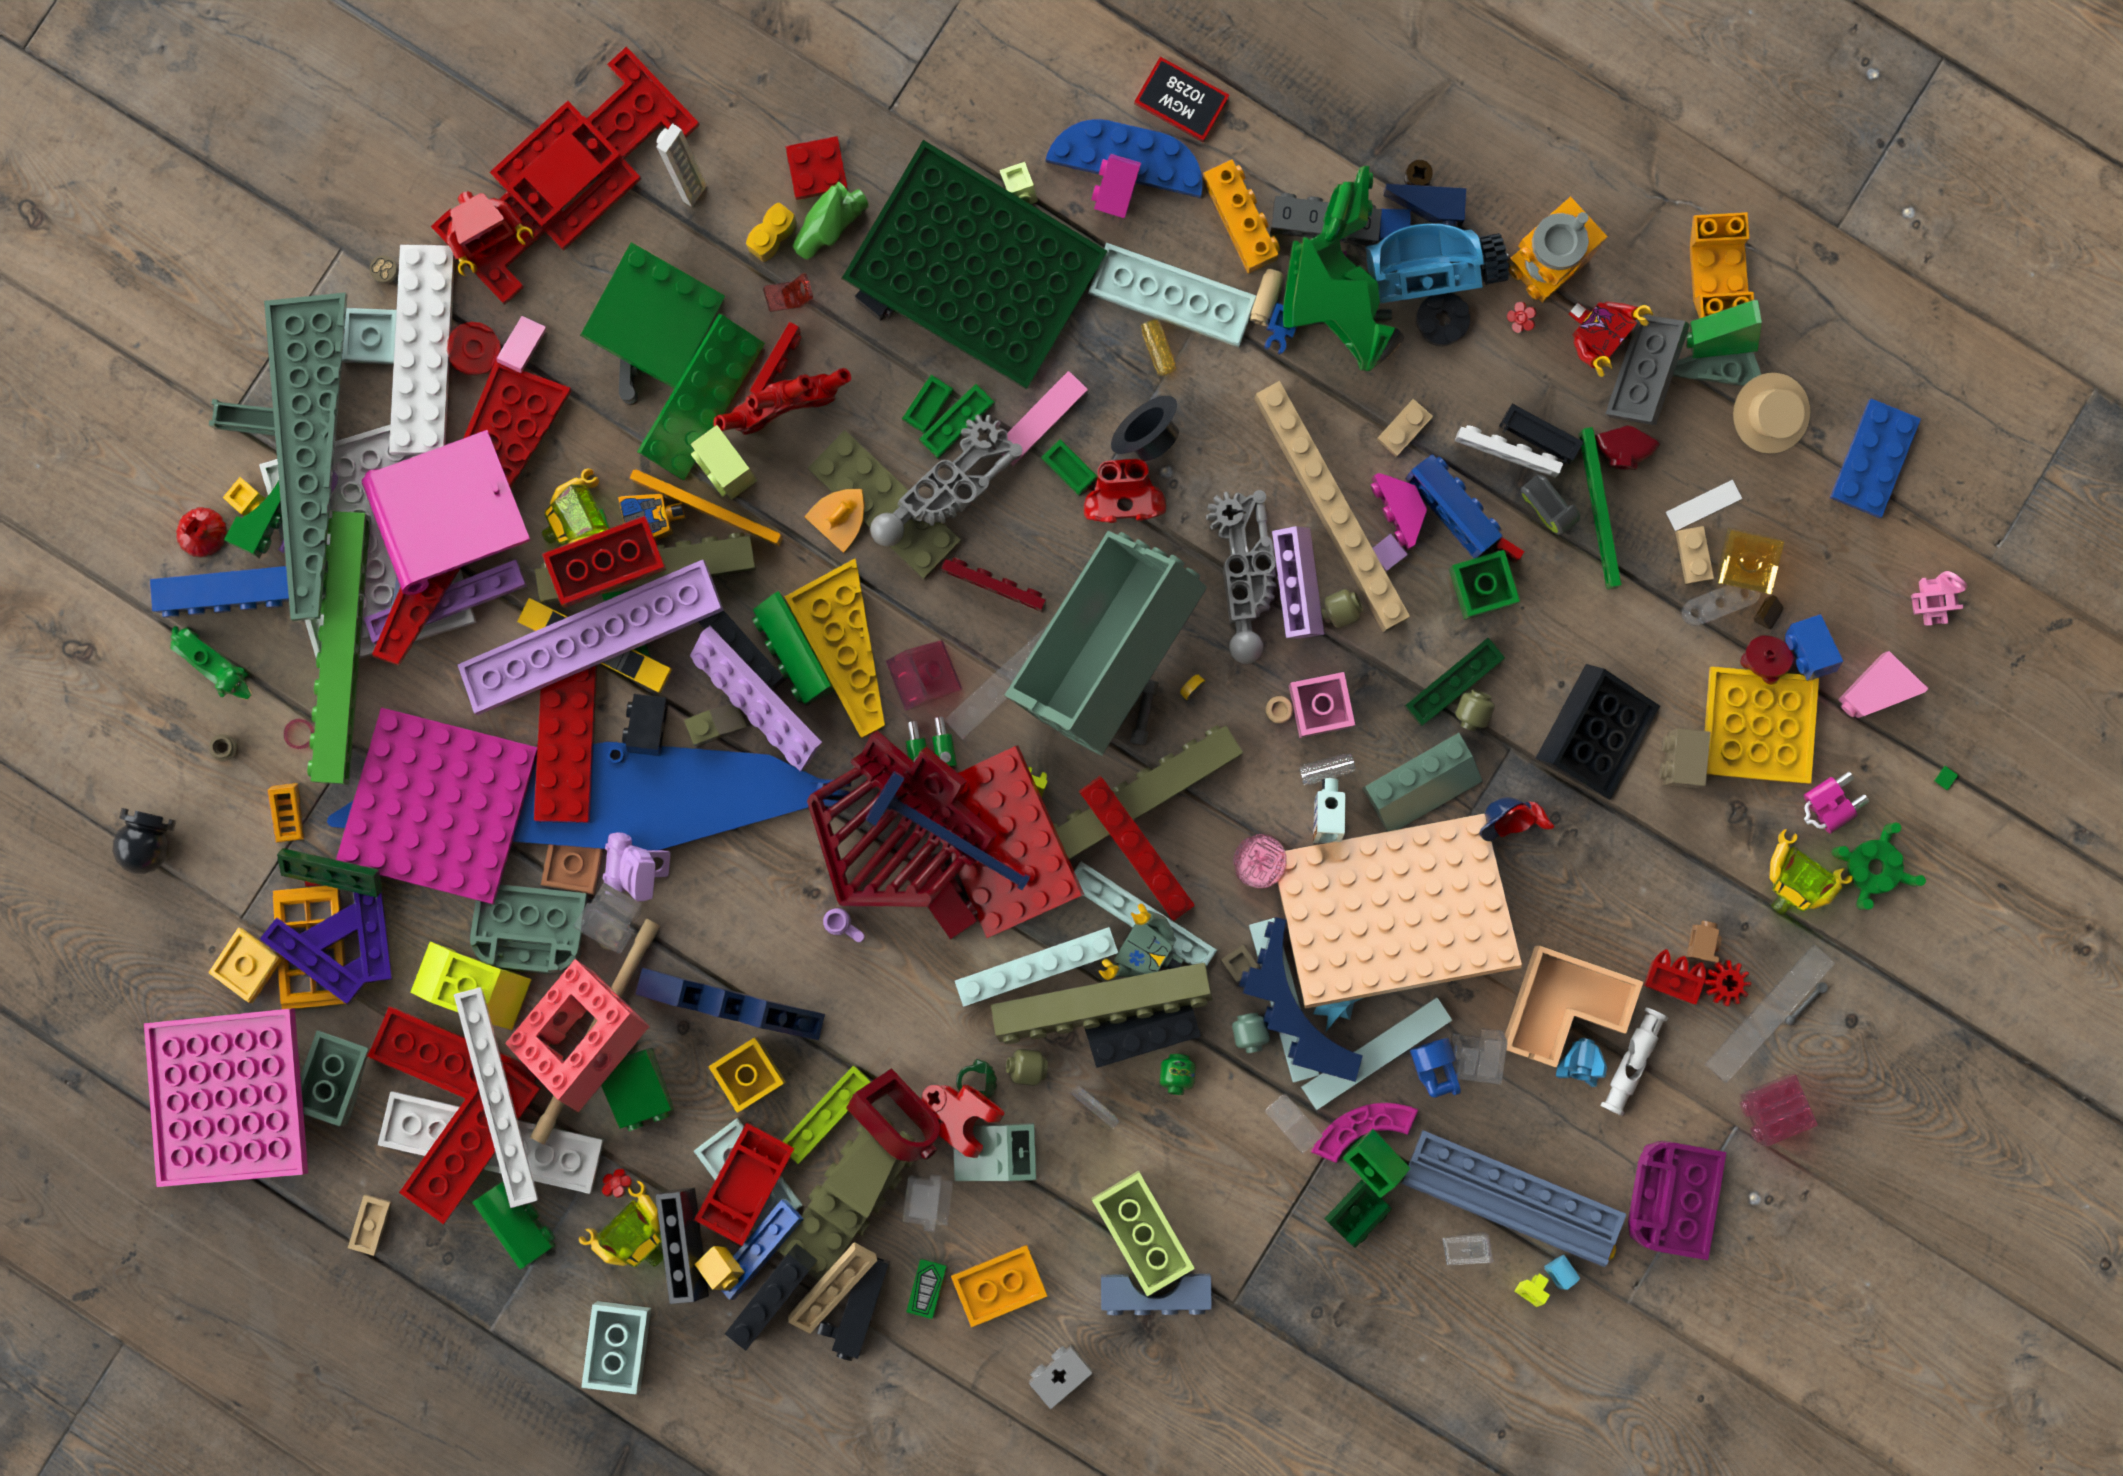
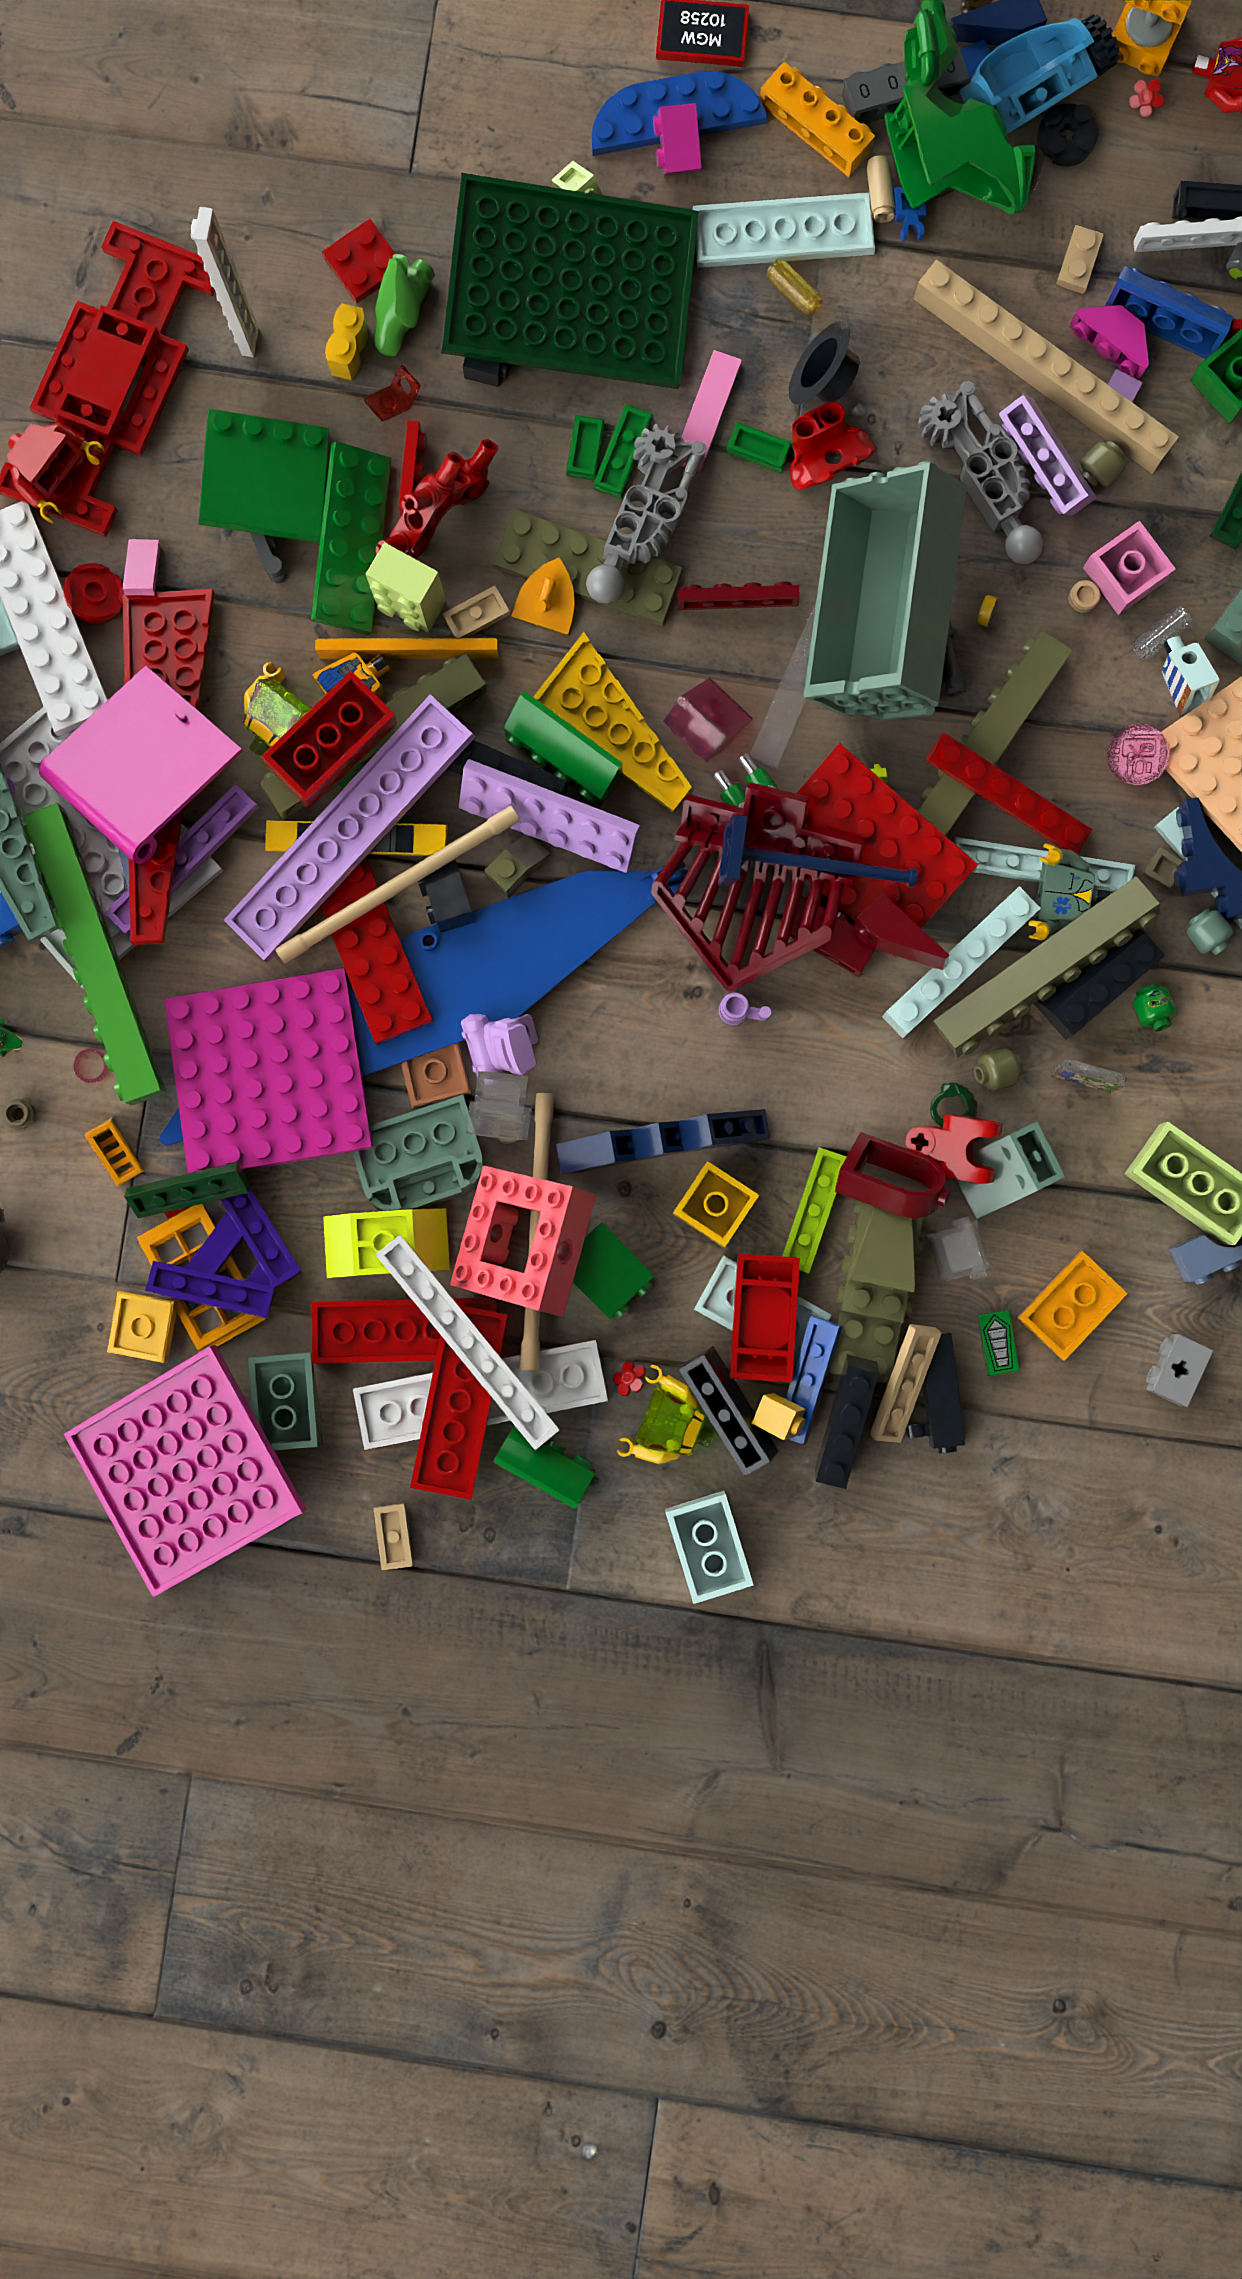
camera: 20 degrees left, 0 degrees up
(512, 712) = (302, 942): none -> tan piece
(775, 503) = (476, 613): none -> tan plate
(987, 920) = (895, 933): none -> dark red slope

